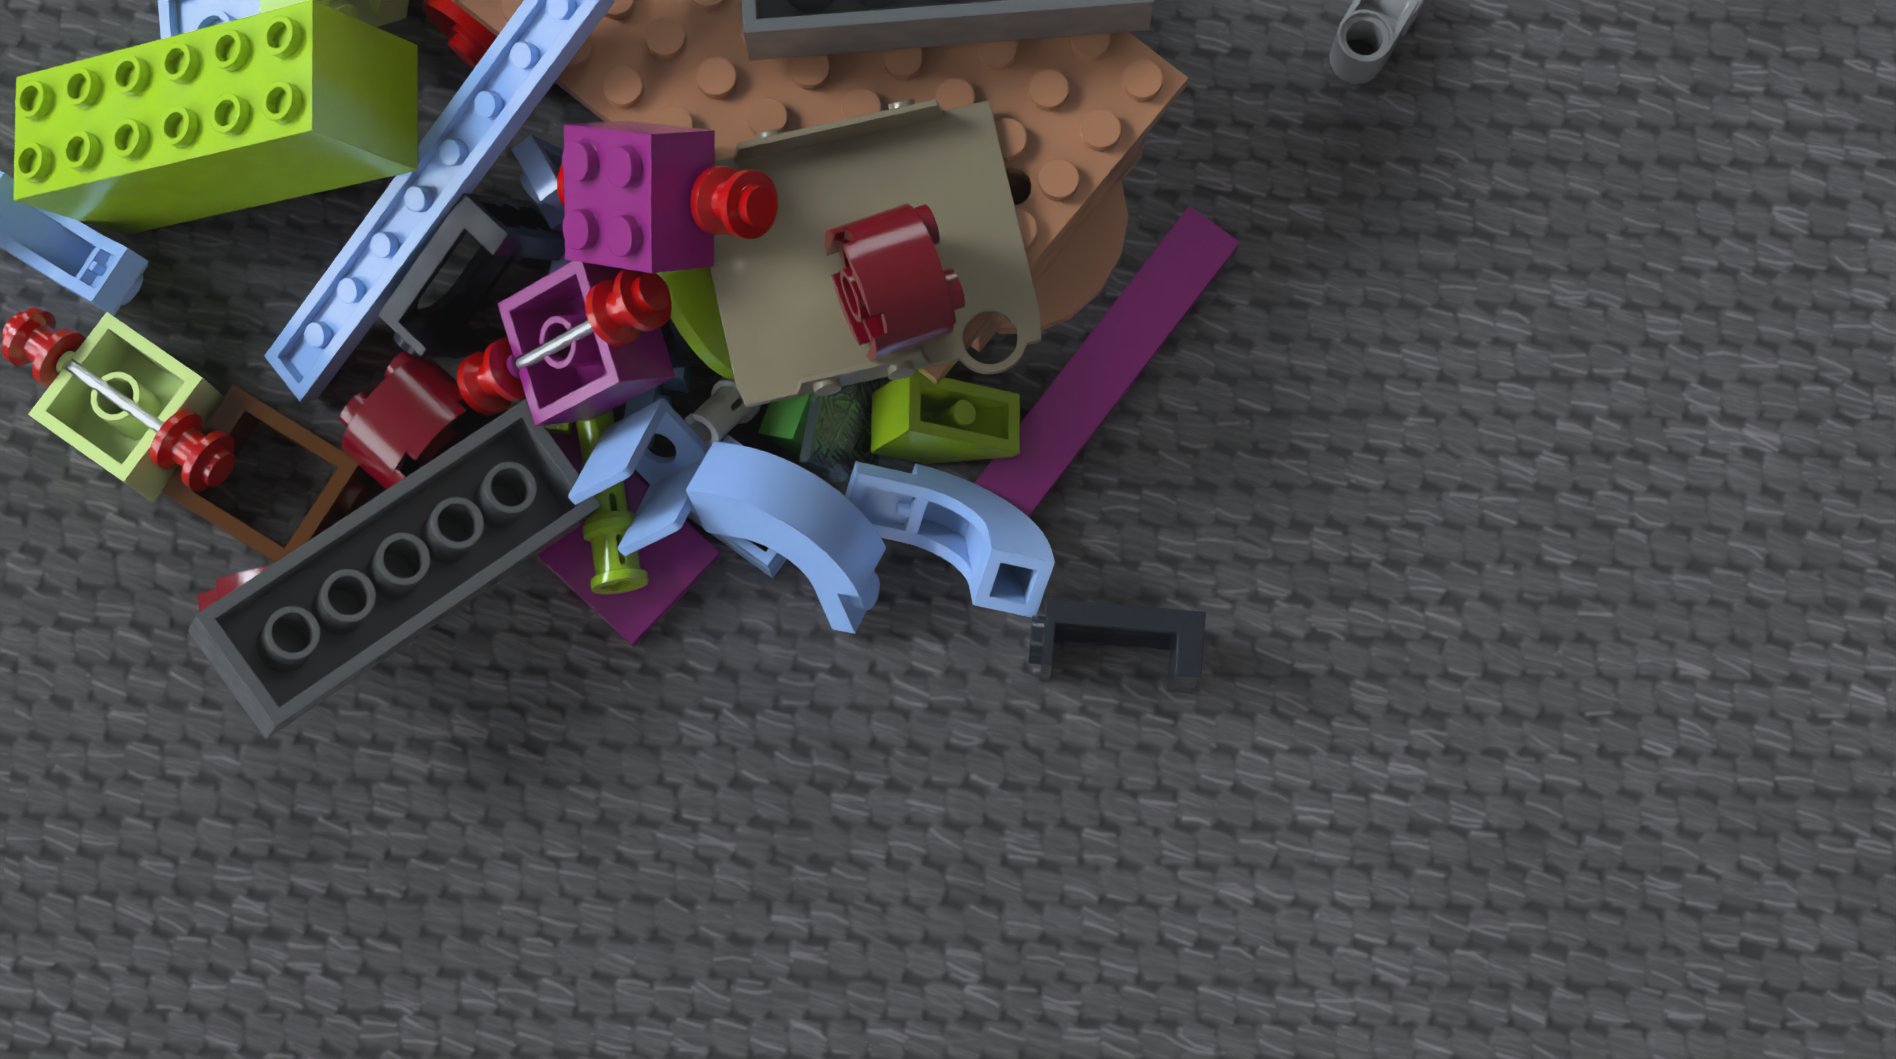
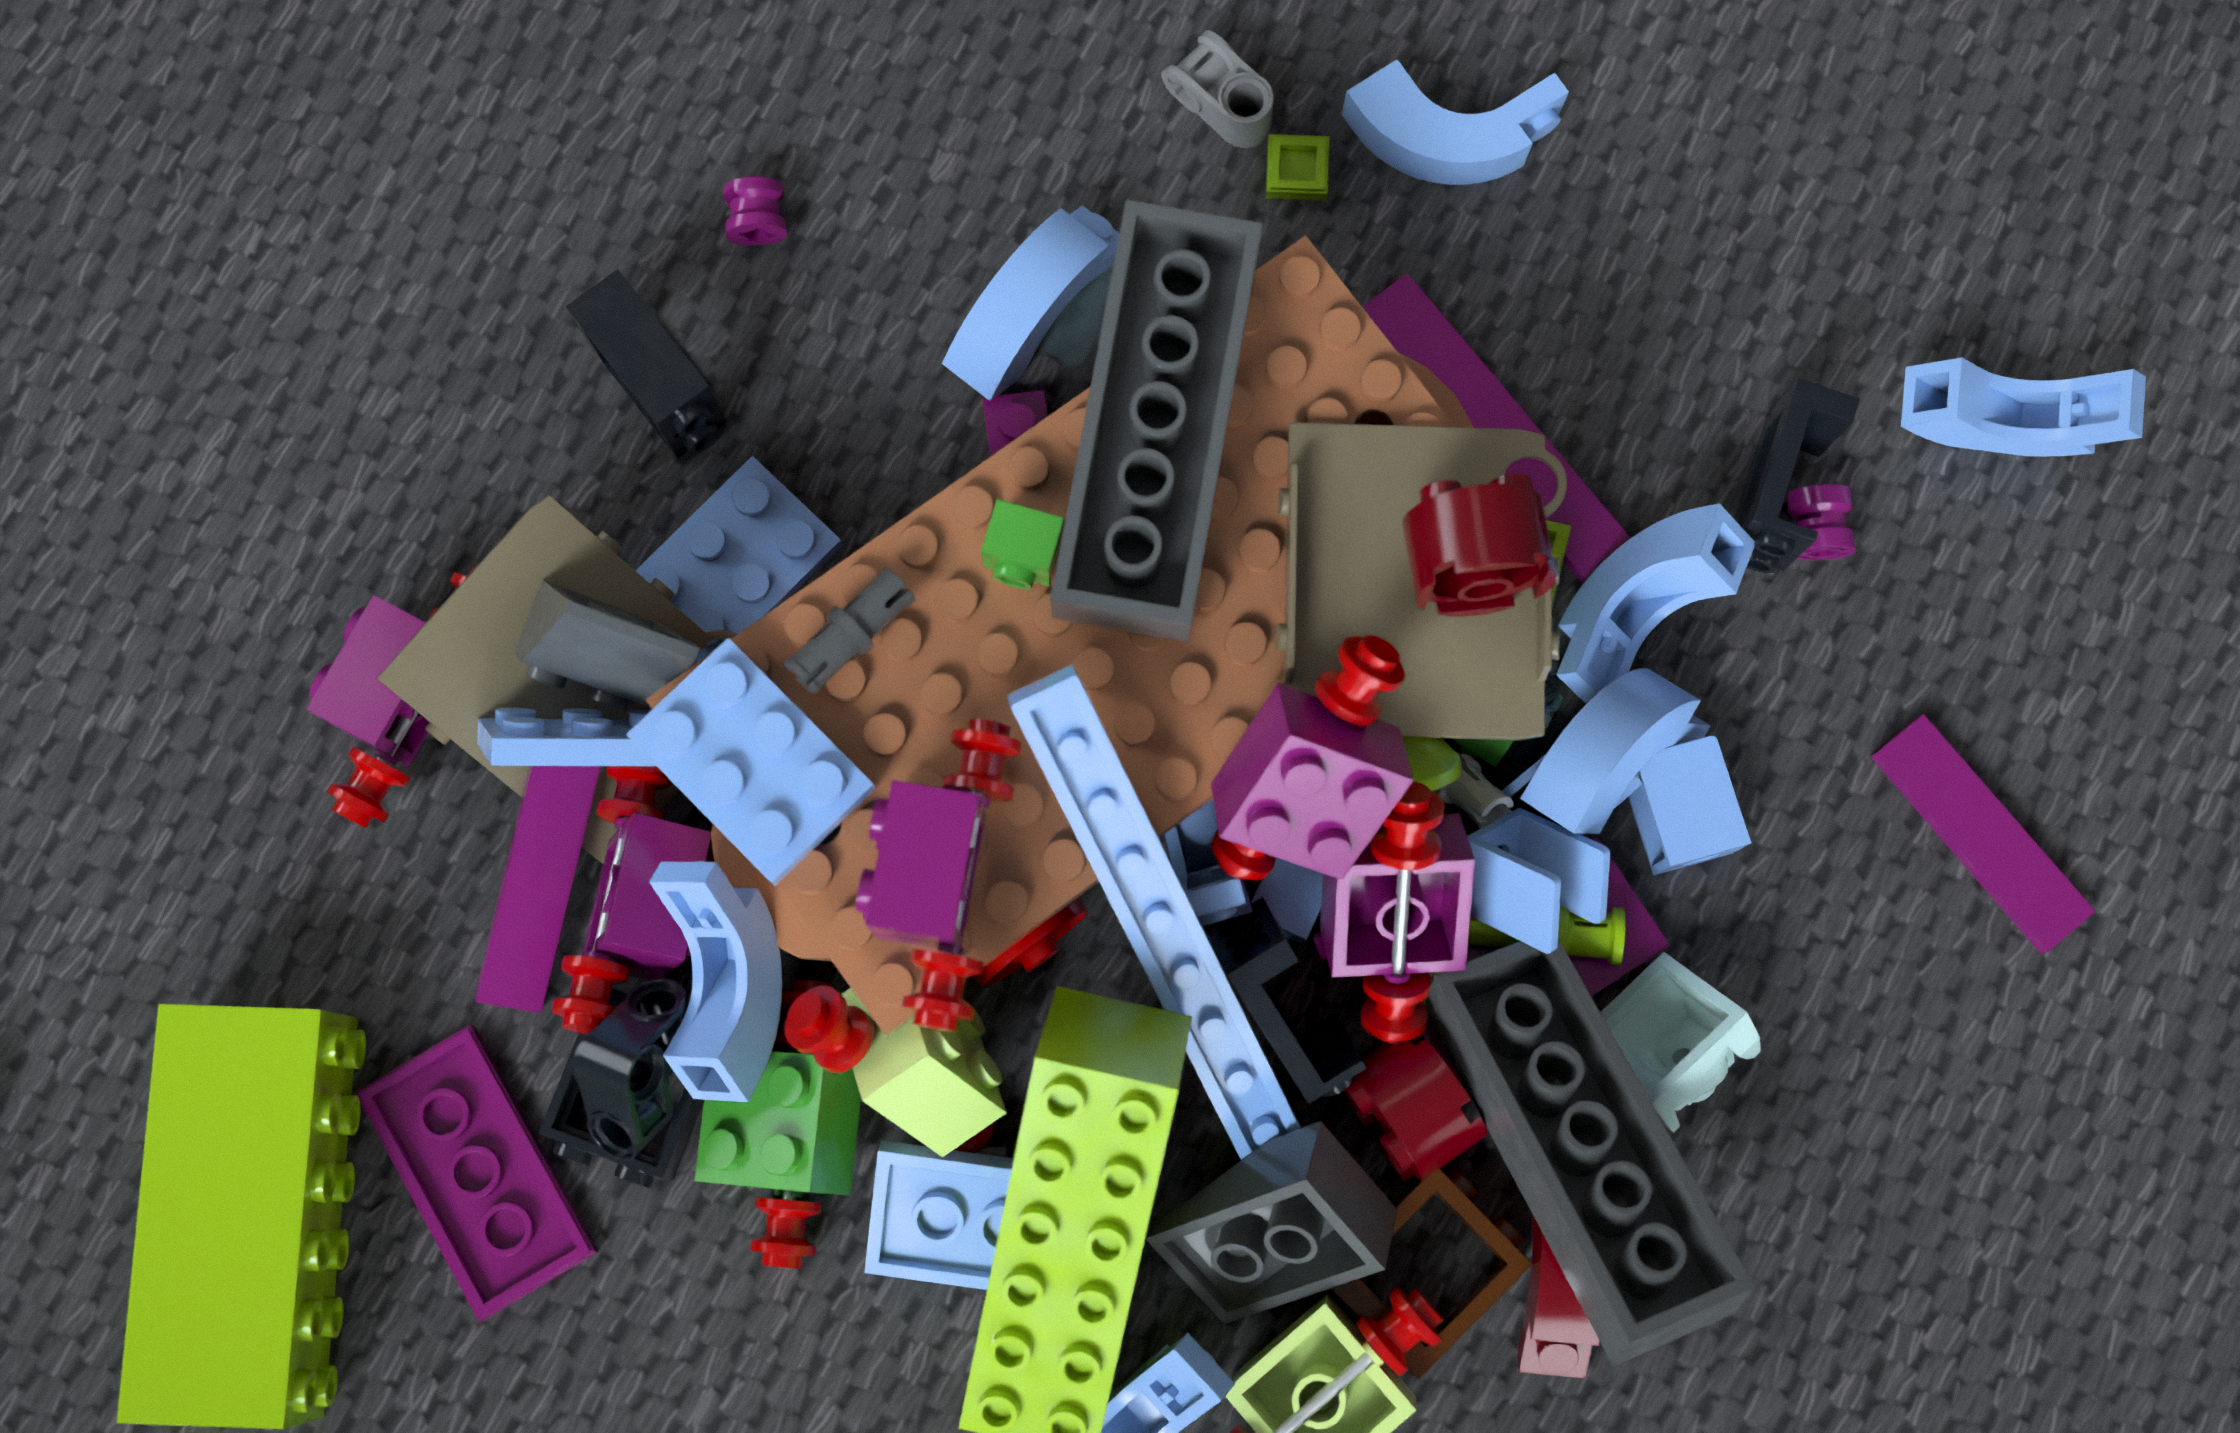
camera: 80 degrees left, 0 degrees up
(271, 330) = (1278, 1226): none -> dark grey slope
(527, 651) = (1678, 1035): none -> light aqua brick
(766, 622) = (1687, 807): none -> light blue piece
(818, 928) = (1983, 834): none -> magenta tile
(1091, 699) = (1825, 511): none -> magenta wheel
(1257, 861) = (1989, 412): none -> light blue arch
(1322, 115) = (1297, 167): none -> lime tile
(1381, 253) = (1446, 145): none -> light blue arch

